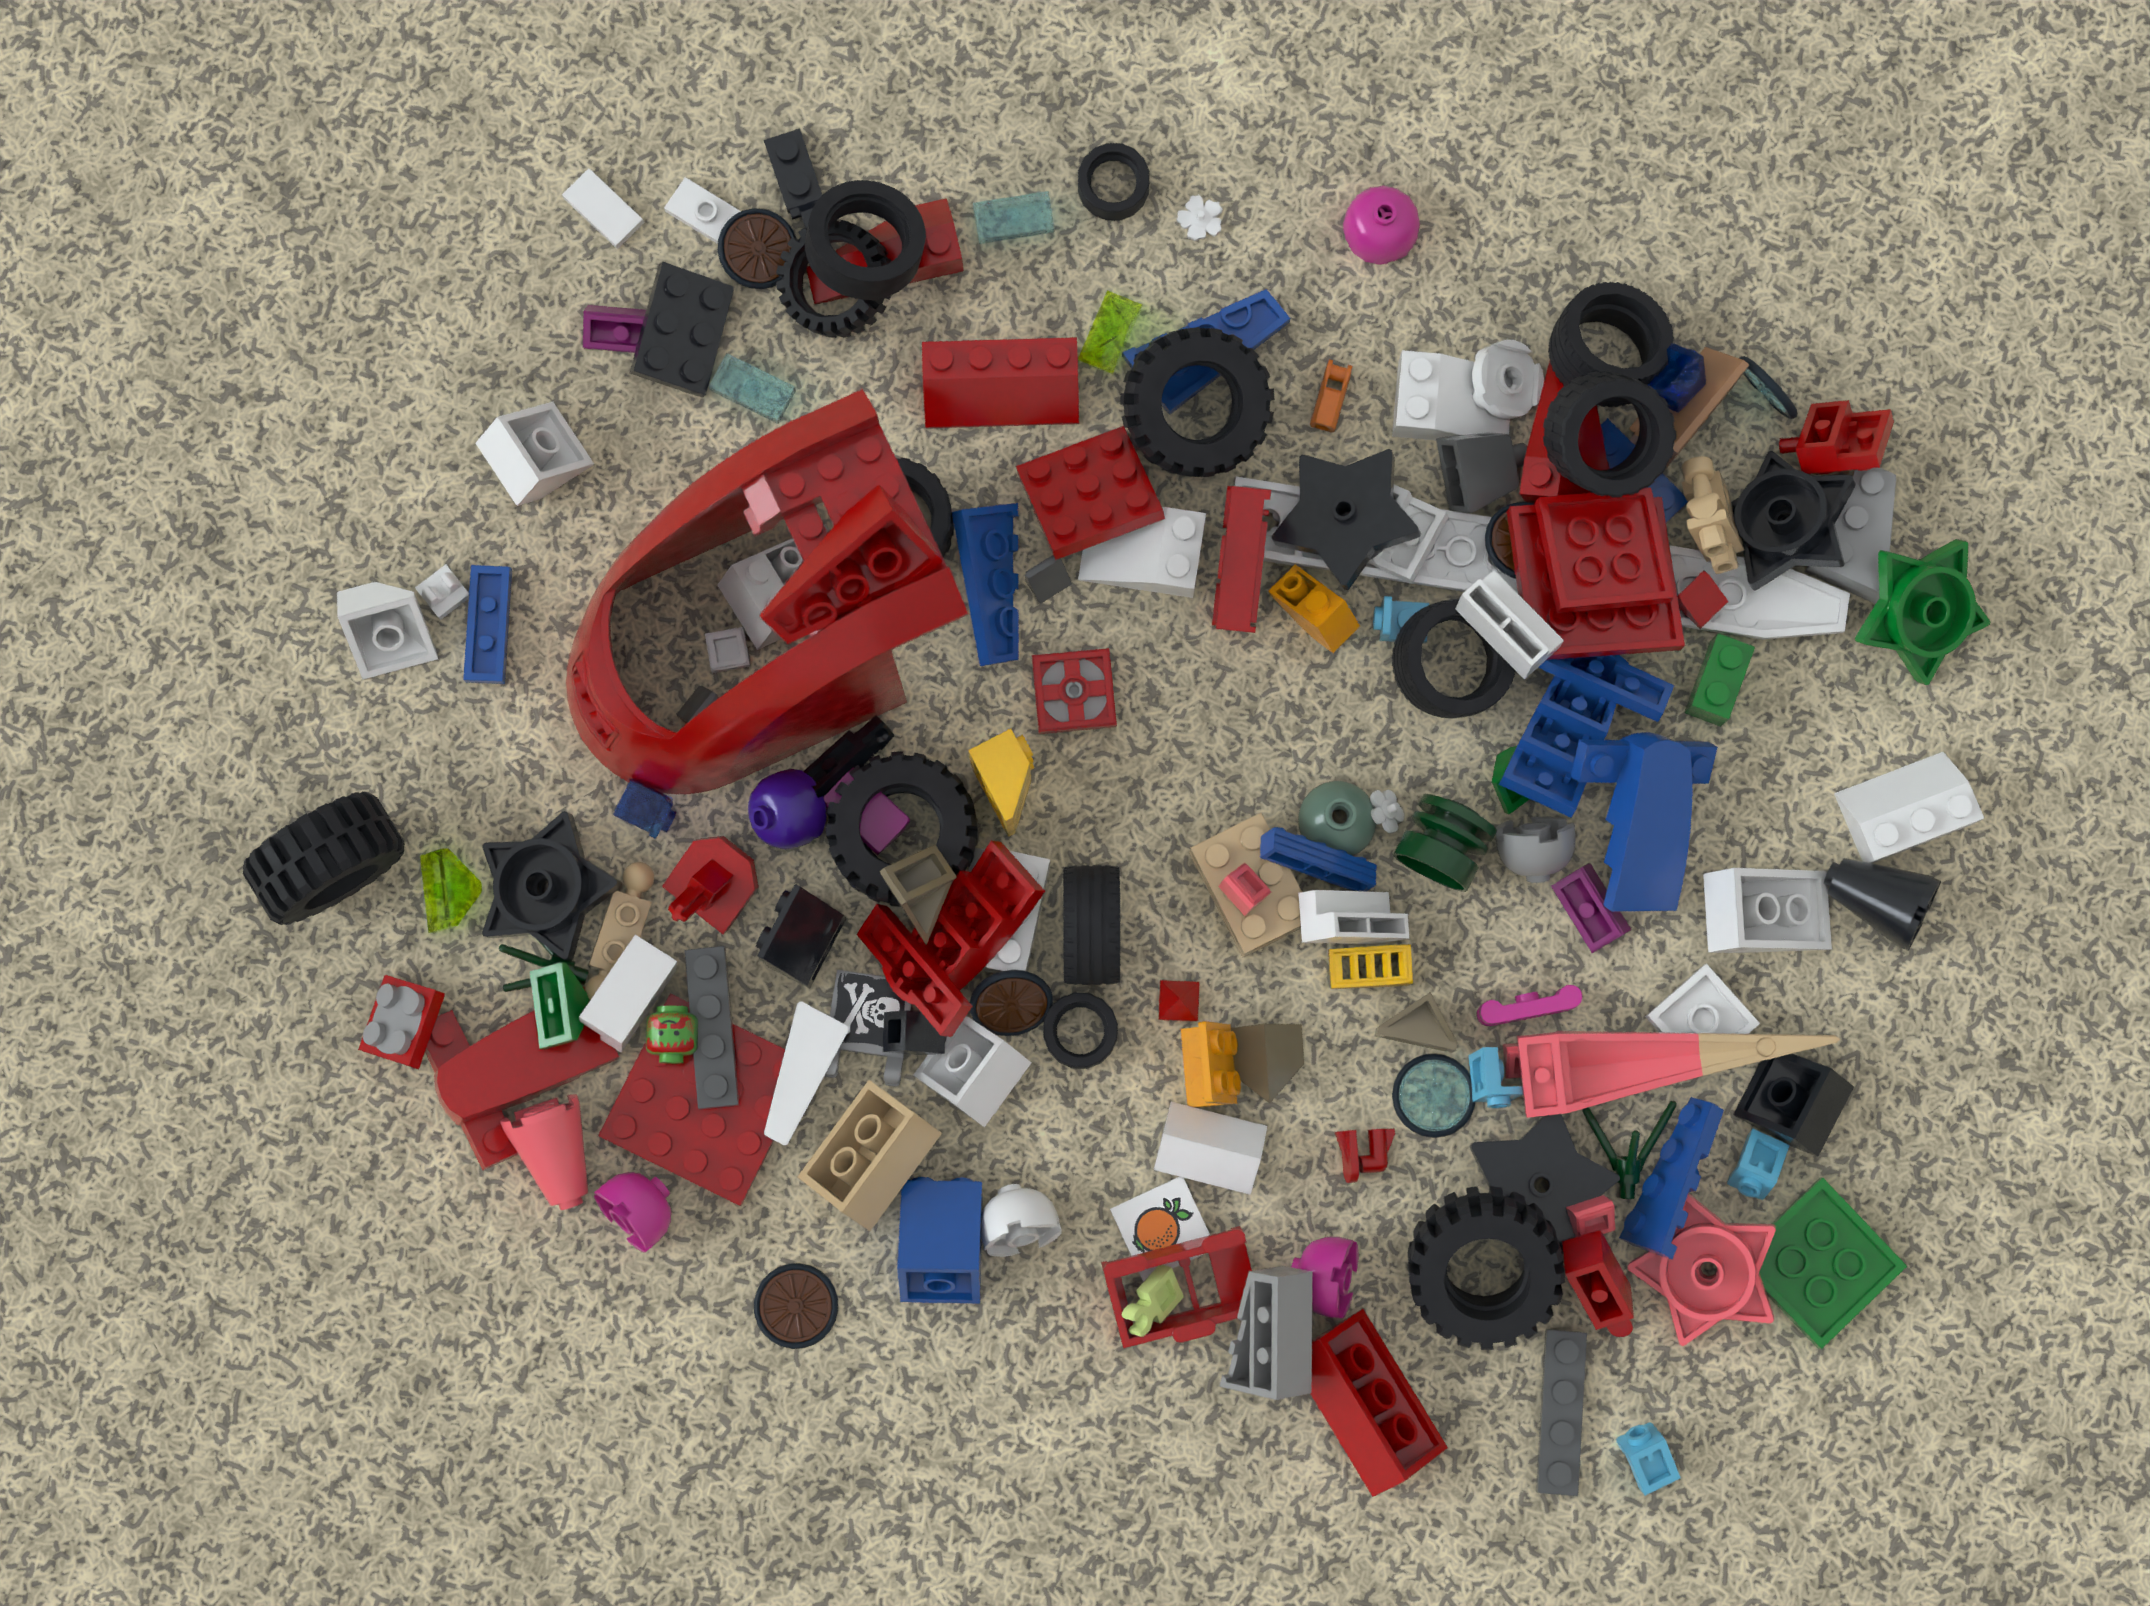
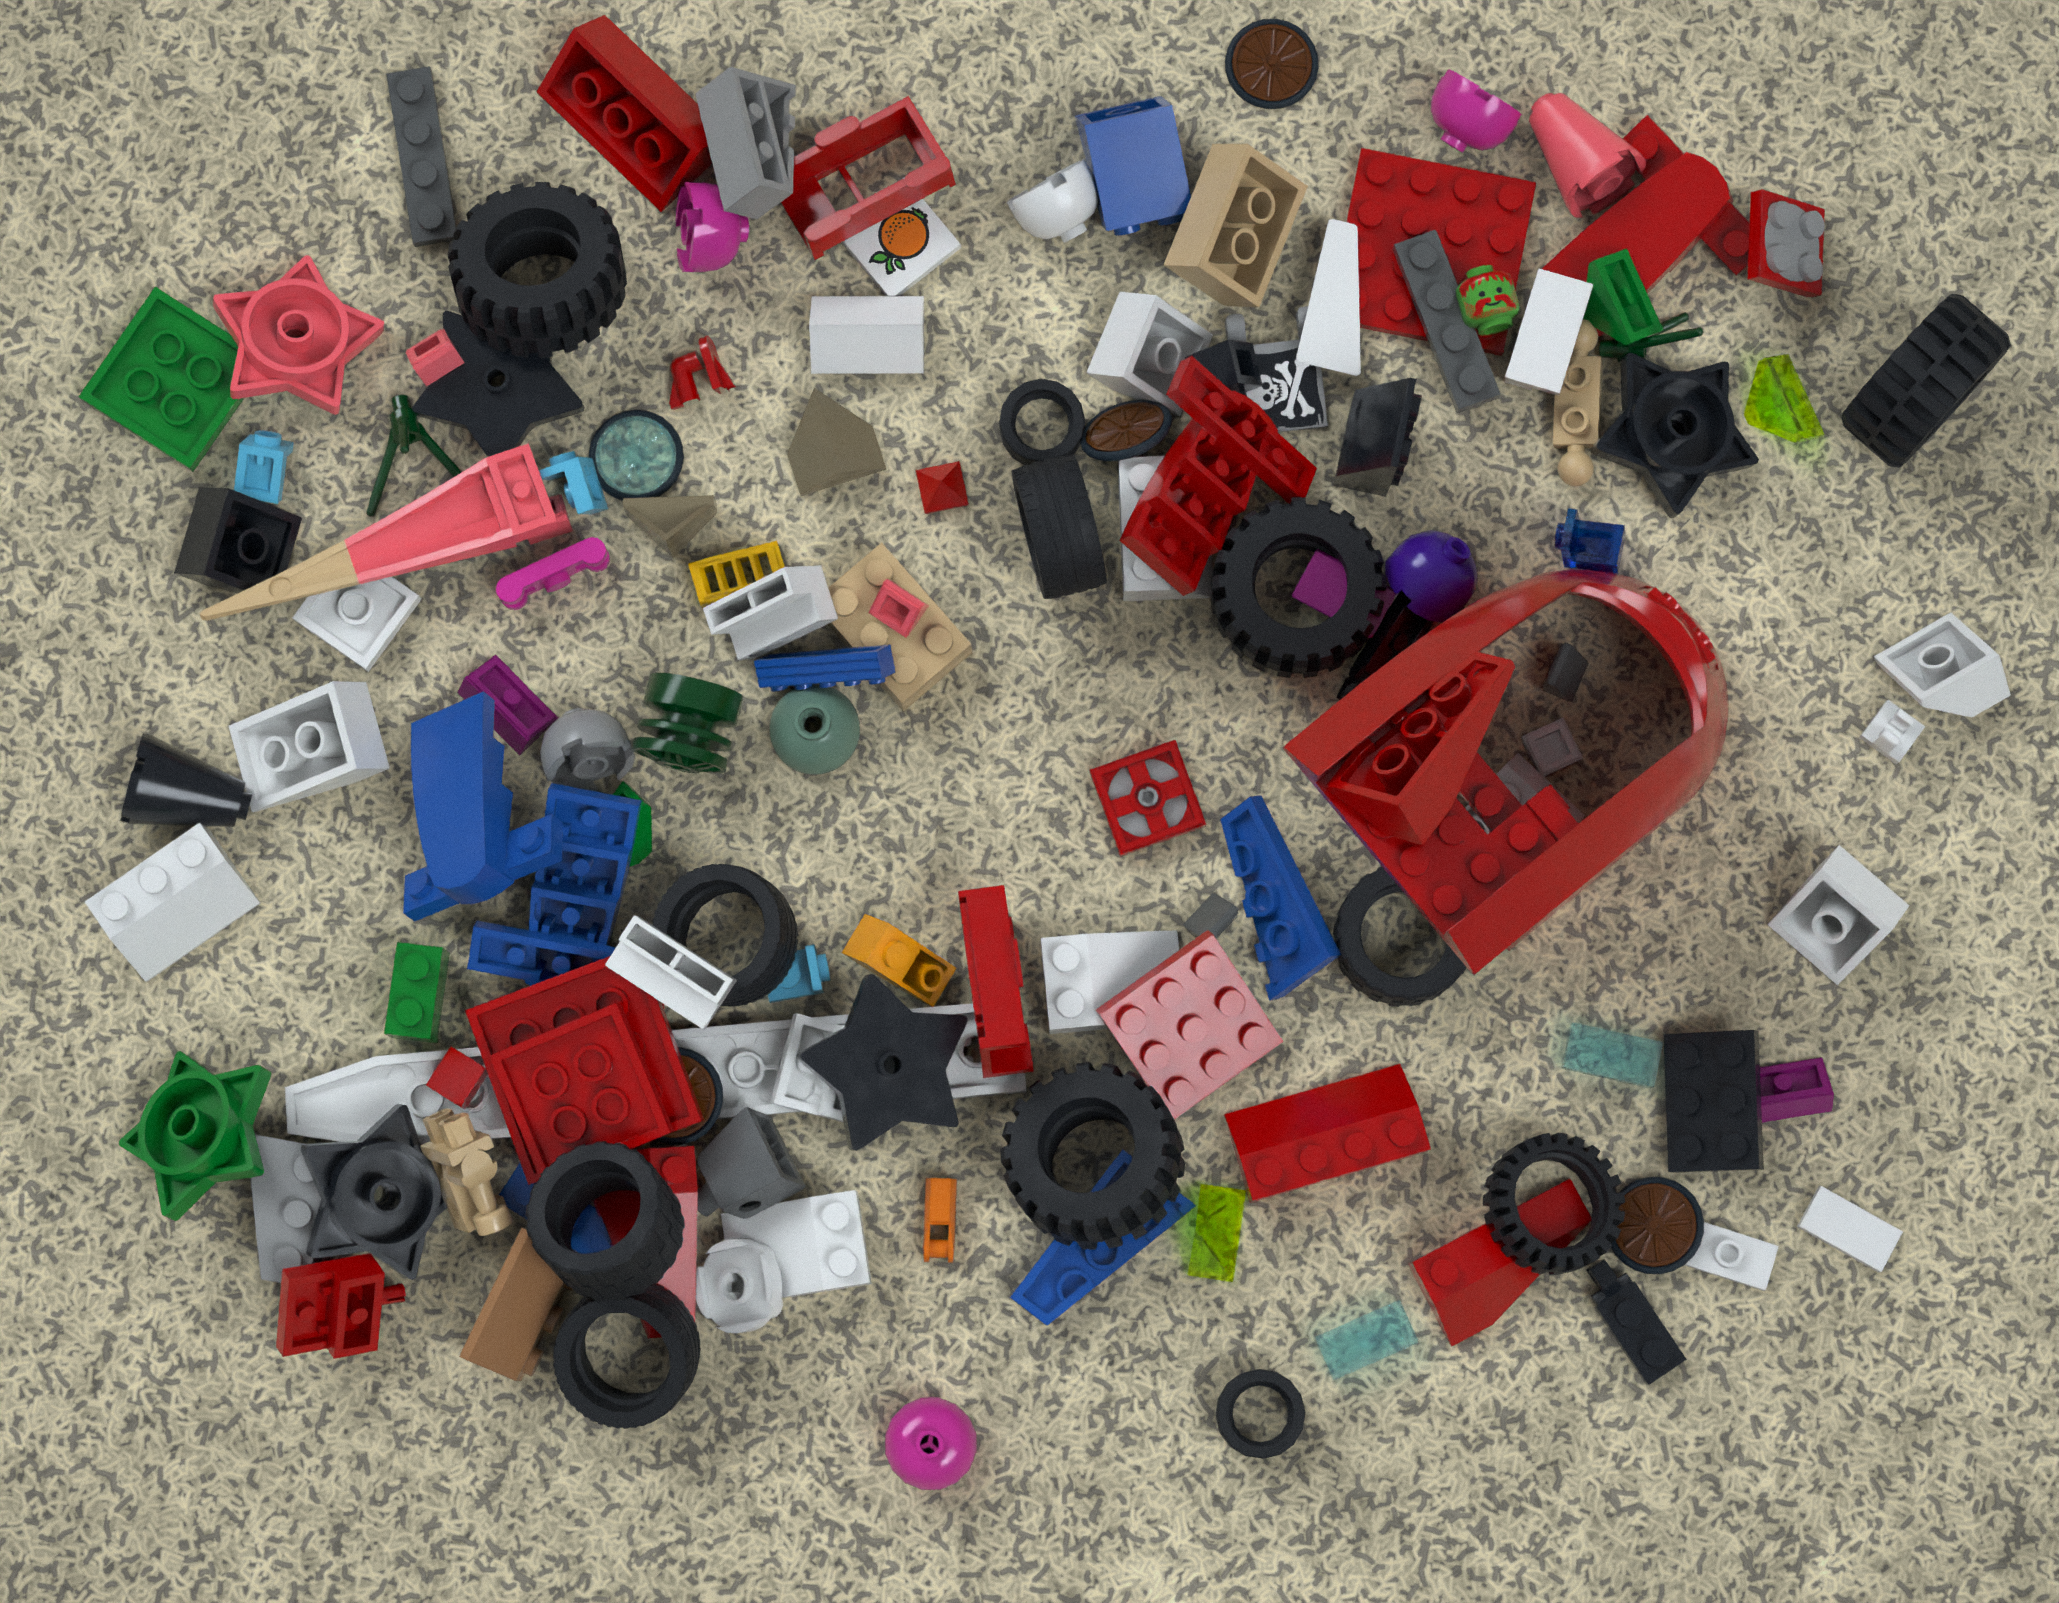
camera: 165 degrees right, 0 degrees up
(487, 624) = (1829, 705): blue plate -> none
(713, 882) = (1492, 480): red piece -> none
(875, 199) = (1523, 1298): black tyre -> none
(920, 887) = (1260, 510): dark tan slope -> none
(1004, 775) = (1201, 663): yellow slope -> none
(1157, 1299) = (886, 157): yellowish green plate -> none
(1200, 218) = (1146, 1399): white plant -> none
(1210, 1065) = (889, 418): light orange bracket -> none
(1386, 810) = (761, 751): white plant -> none
(1599, 1282) = (412, 288): red brick -> none
(1648, 1457) = (320, 131): medium azure bracket -> none
(1674, 1176) = (353, 423): blue wing -> none
(1681, 377) = (539, 1318): clear blue bracket -> none
(1769, 389) = (432, 1349): black wheel -> none

